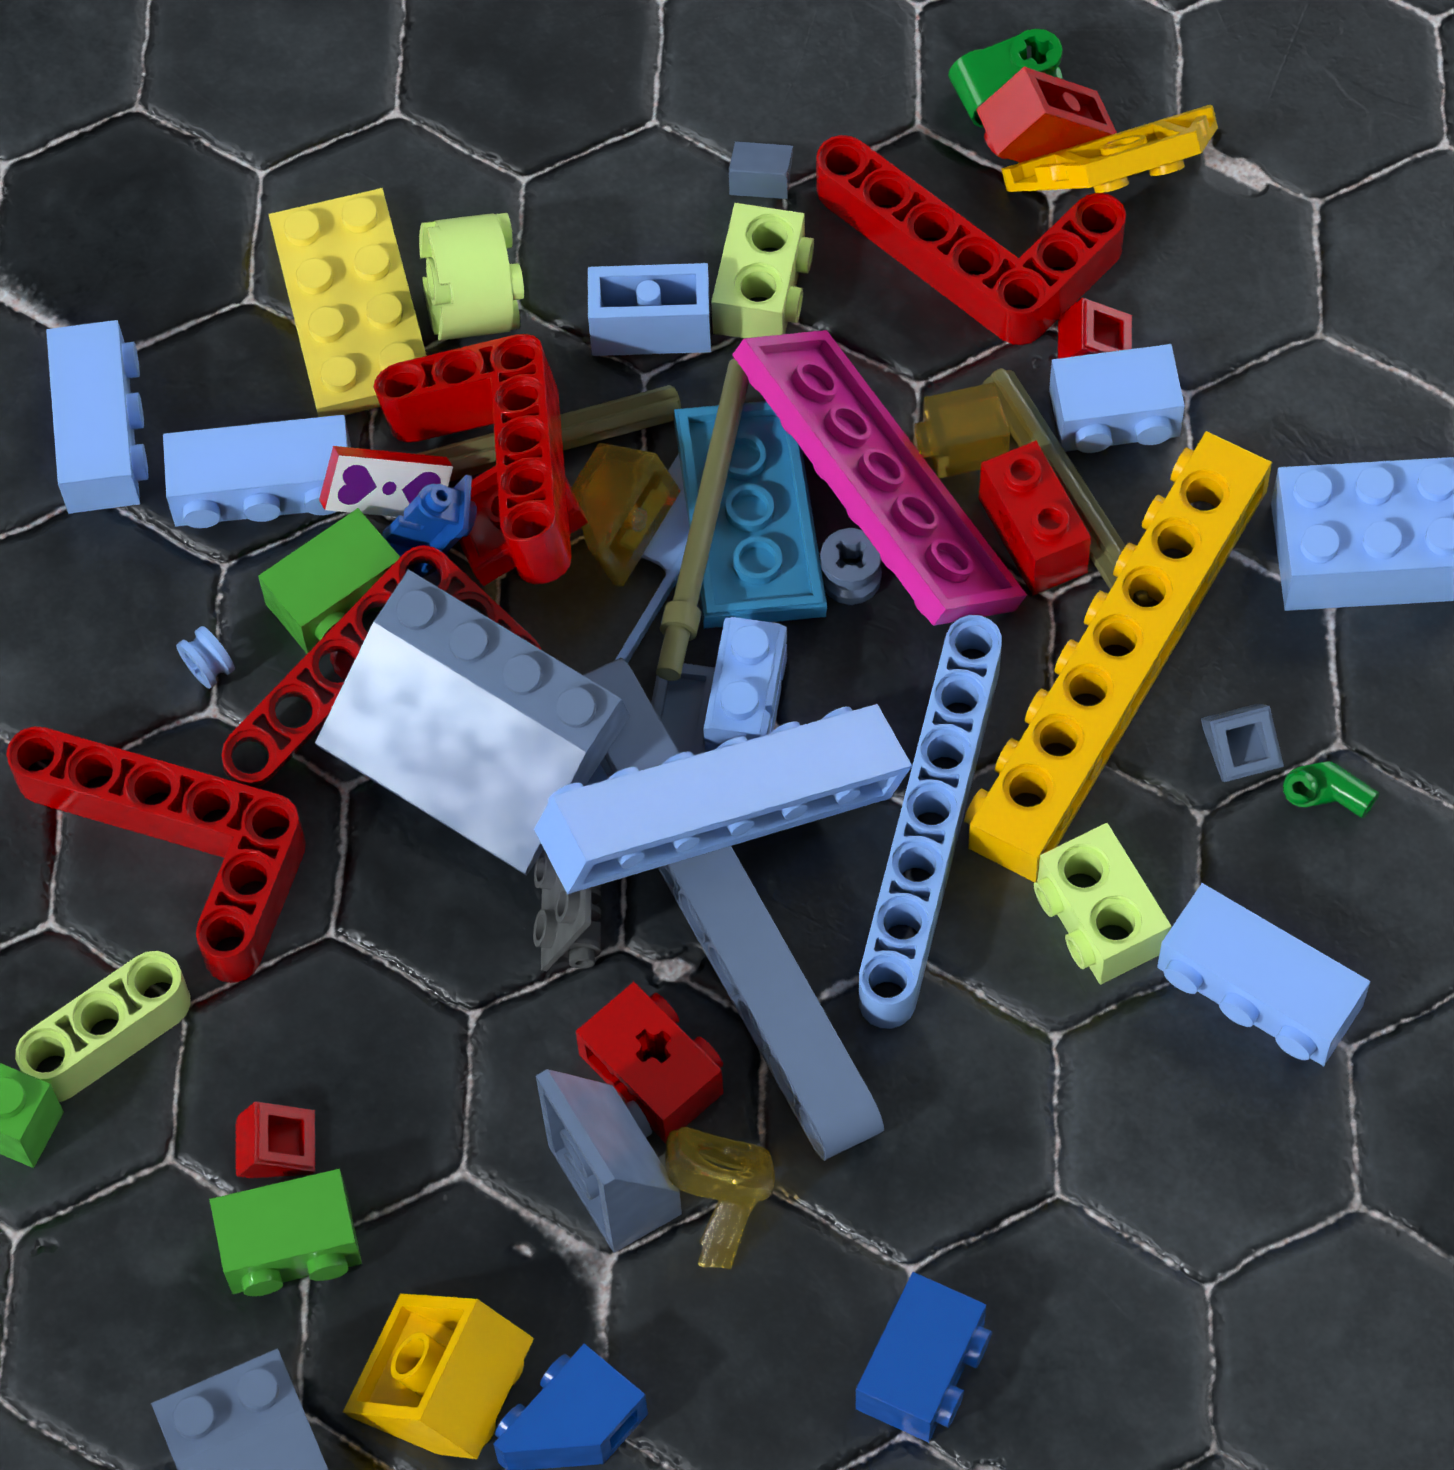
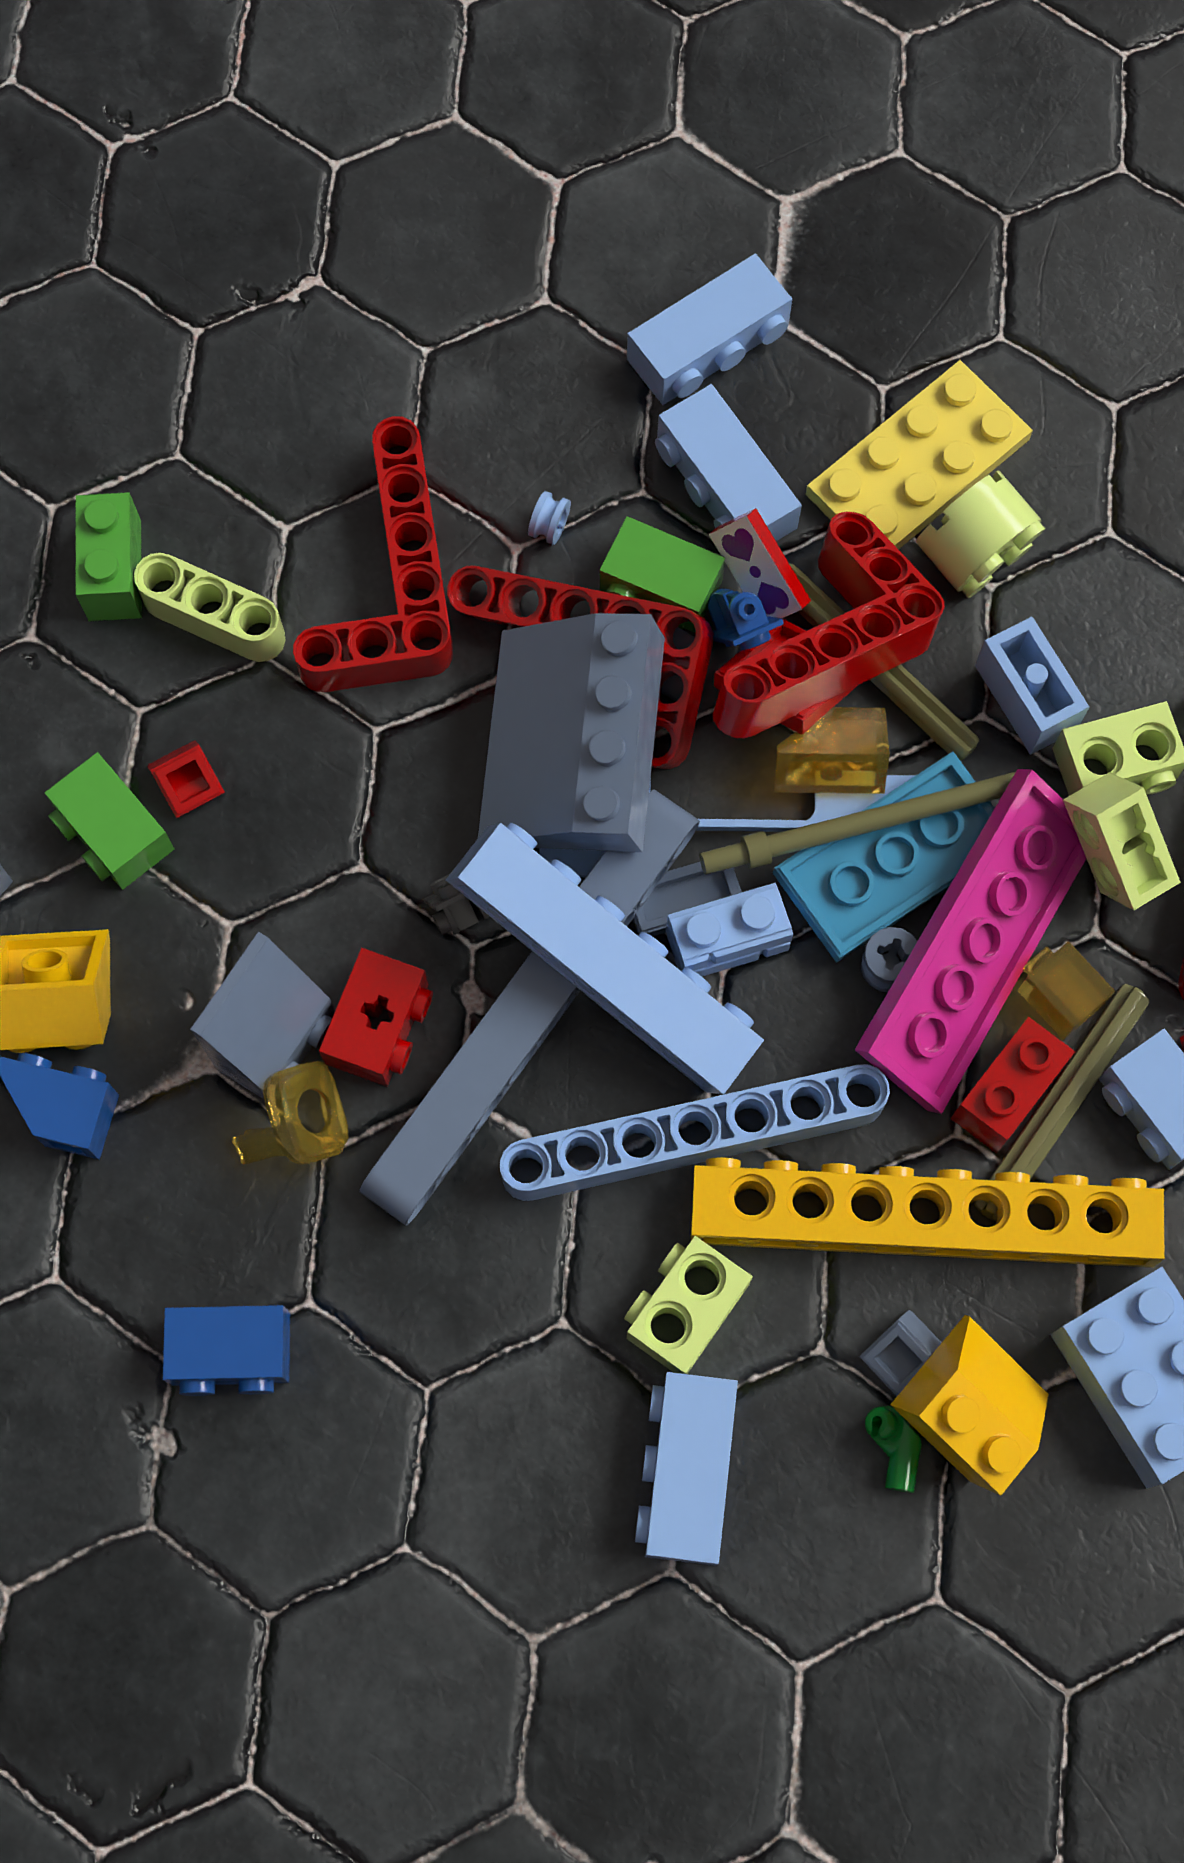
camera: 60 degrees right, 10 degrees up
(852, 304) = (1122, 840): none -> yellowish green brick
(1330, 696) = (976, 1407): none -> yellow slope

